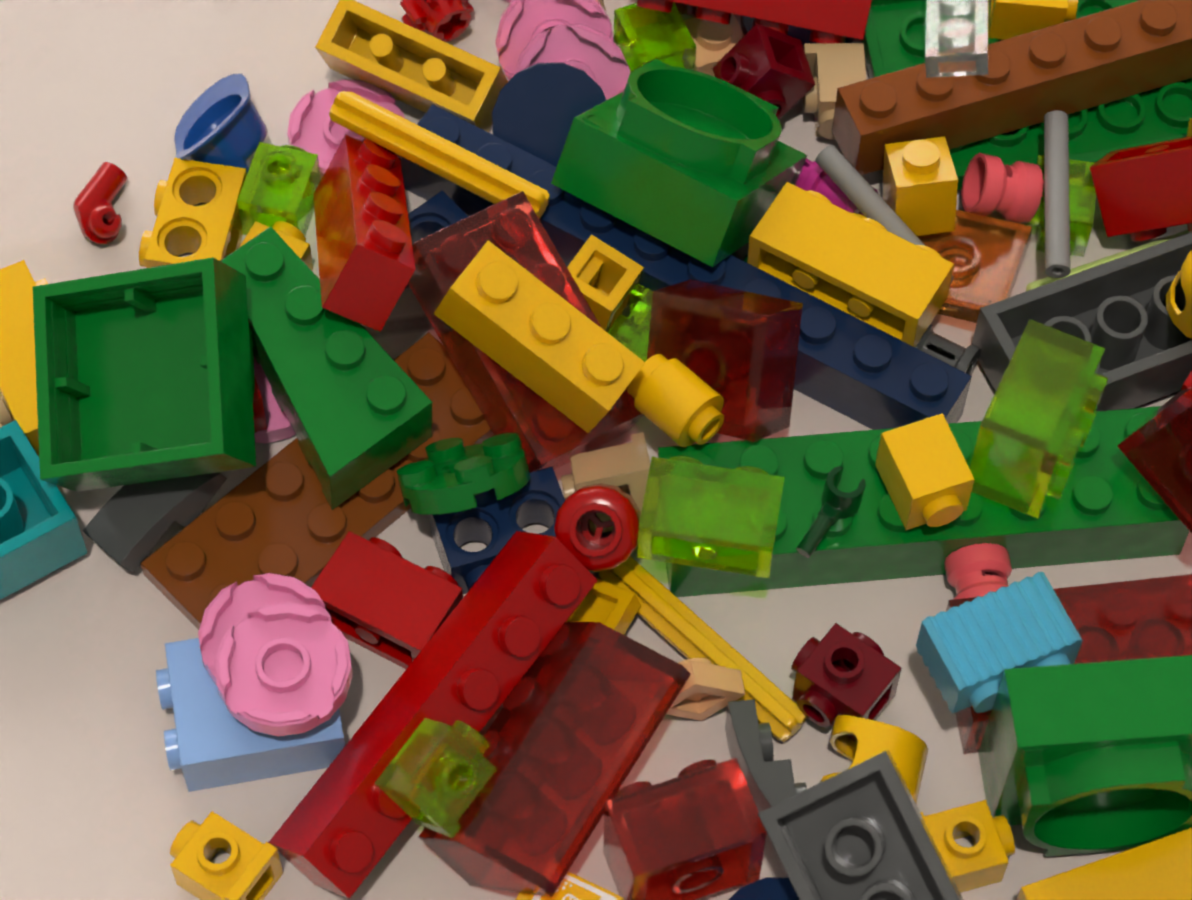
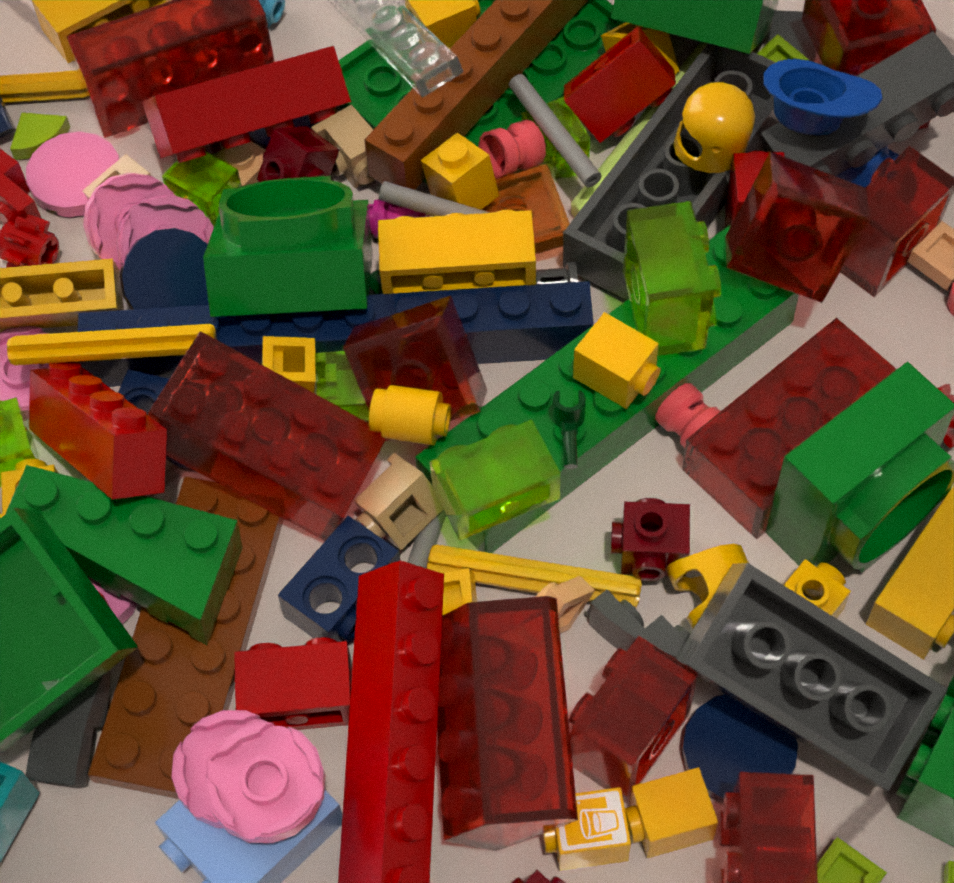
camera: 30 degrees left, 0 degrees up
(438, 774) = (437, 785): clear neon green brick -> none
(458, 473) = (288, 563): green plate -> none
(538, 337) = (289, 425): yellow brick -> none
(592, 549) = (436, 540): red head -> none
(993, 633) = (750, 446): medium azure brick -> none

